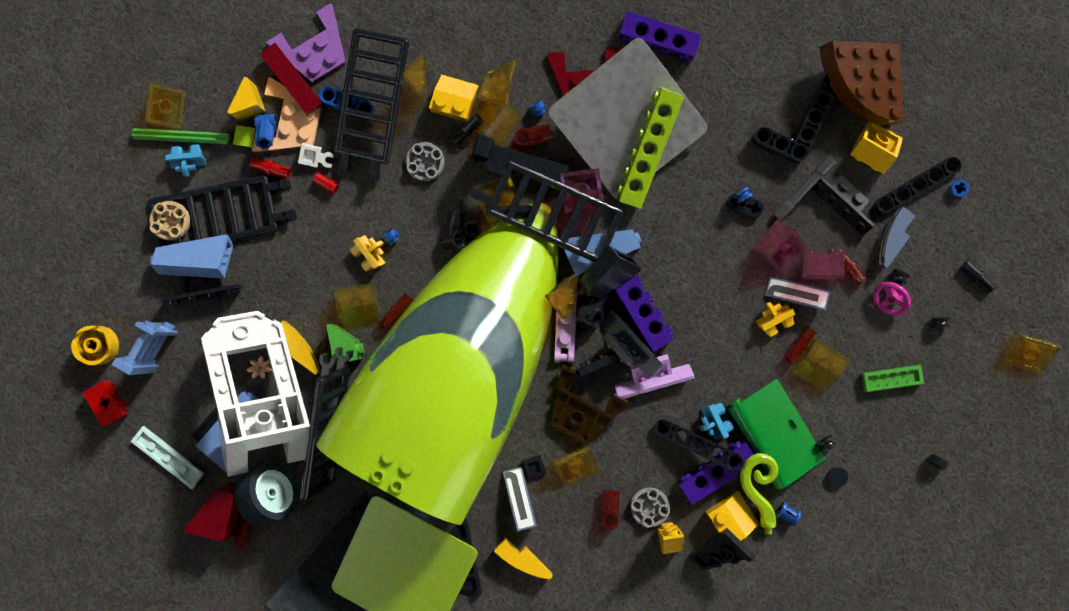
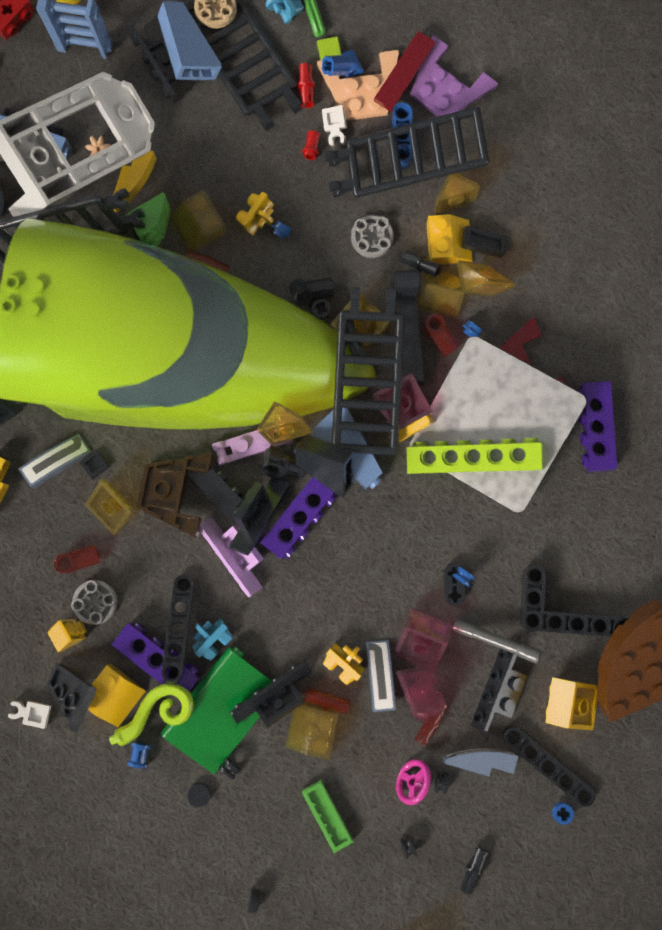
camera: 65 degrees right, 5 degrees down
(246, 101) = (364, 34): yellow slope -> none
(466, 69) = (484, 242): none -> black tile
(605, 187) = (415, 427): none -> yellow tile
(723, 588) = (34, 714): none -> white plate
(786, 386) = (275, 699): none -> black bracket

